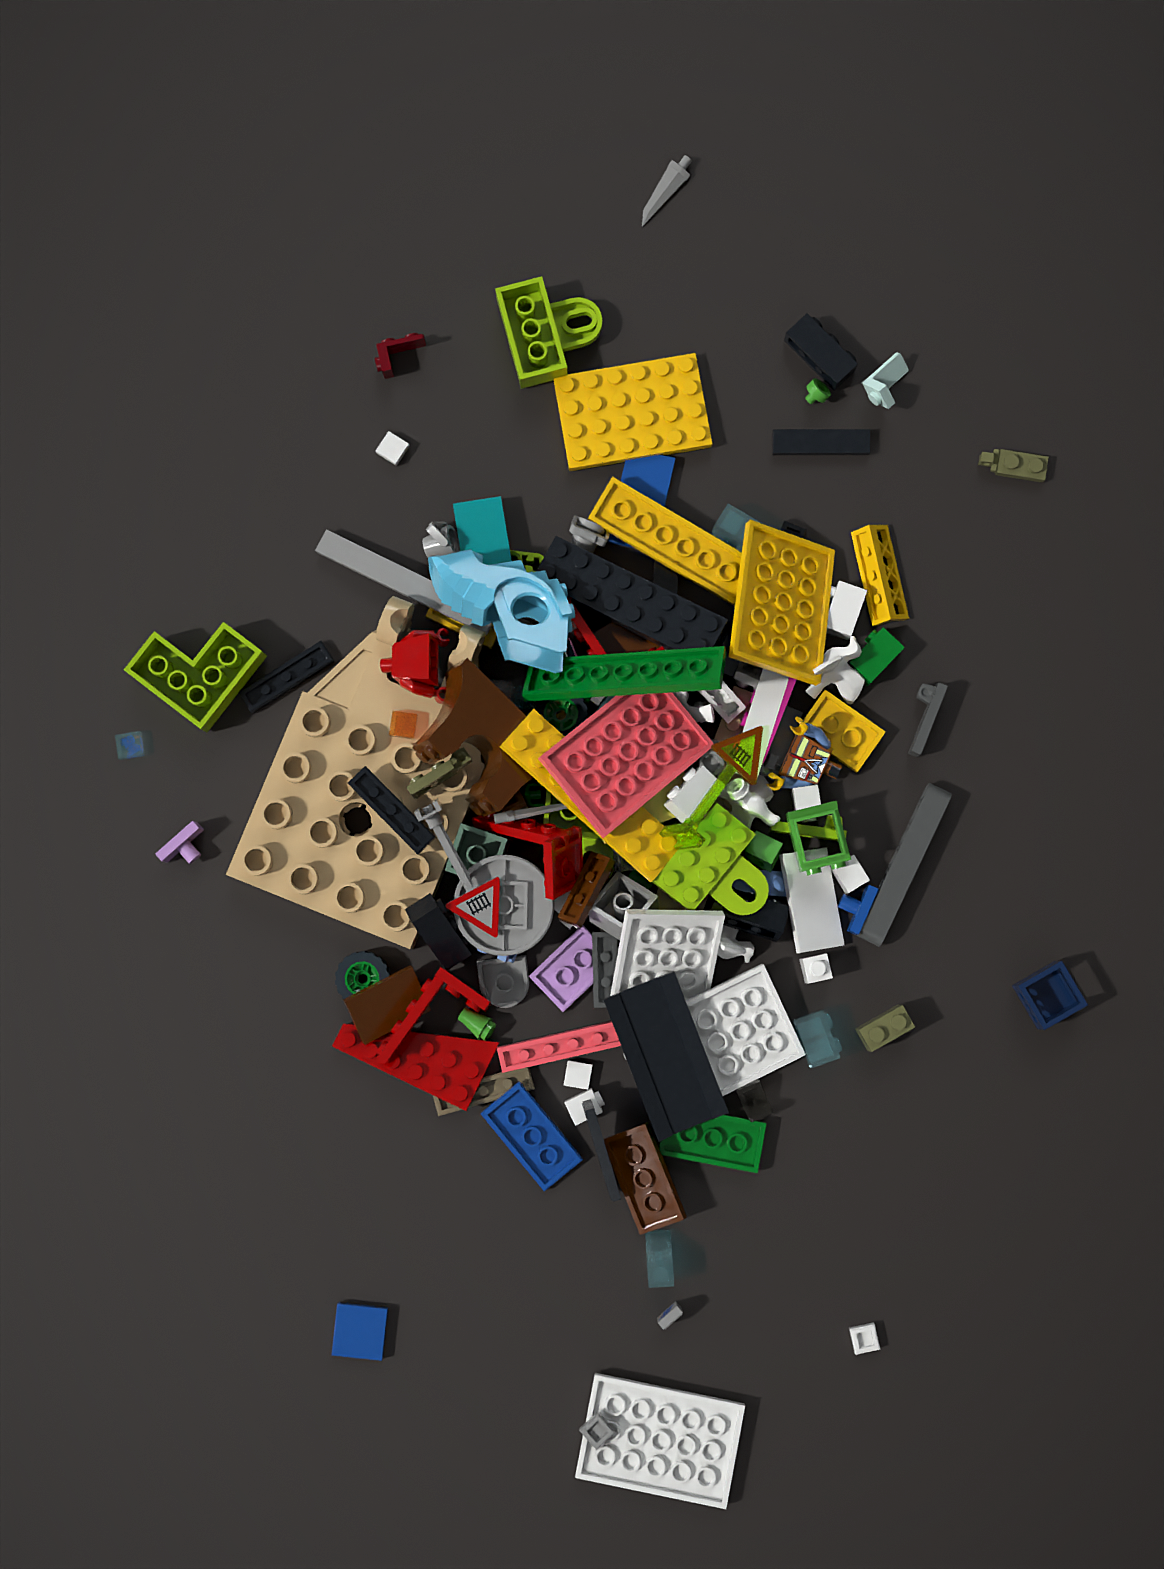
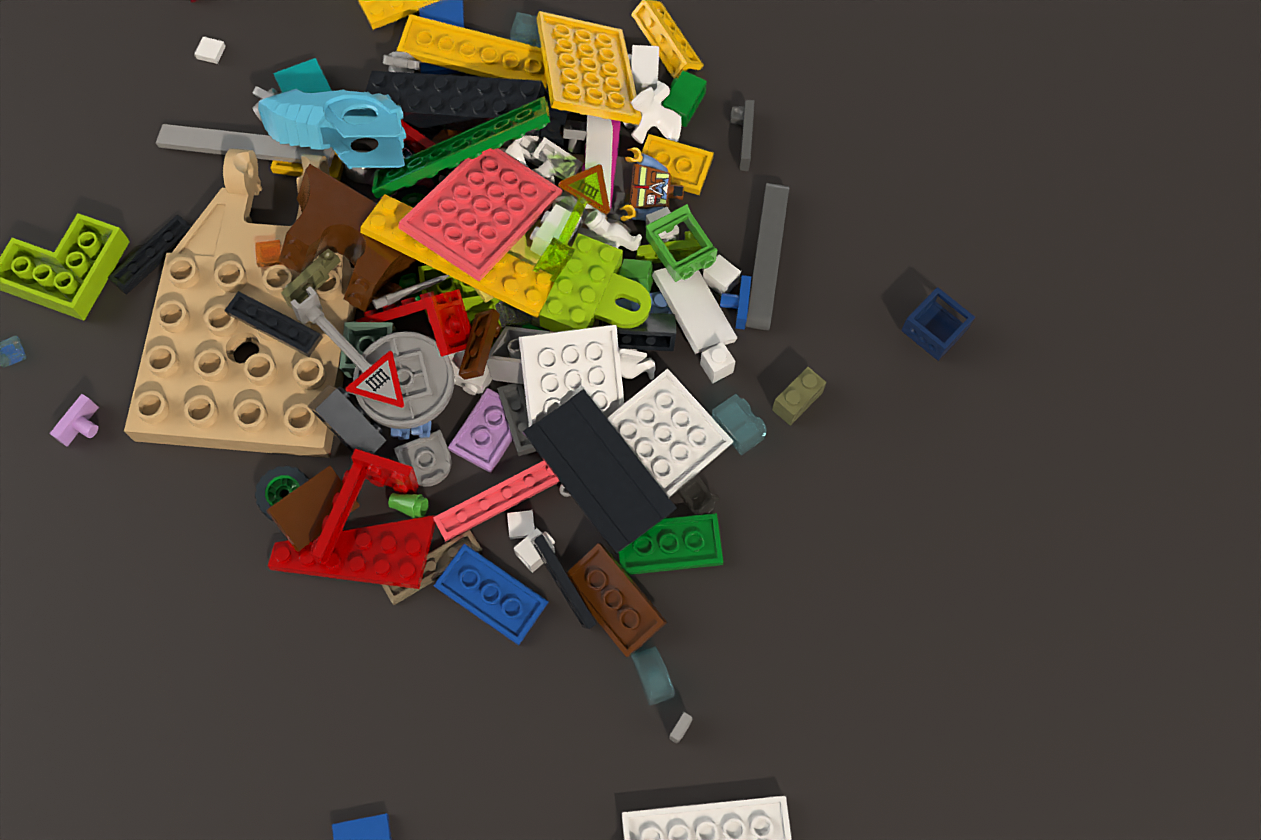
camera: 25 degrees left, 15 degrees down
(416, 662) = (268, 195): red torso -> none
(864, 1338) = (881, 693): white tile -> none

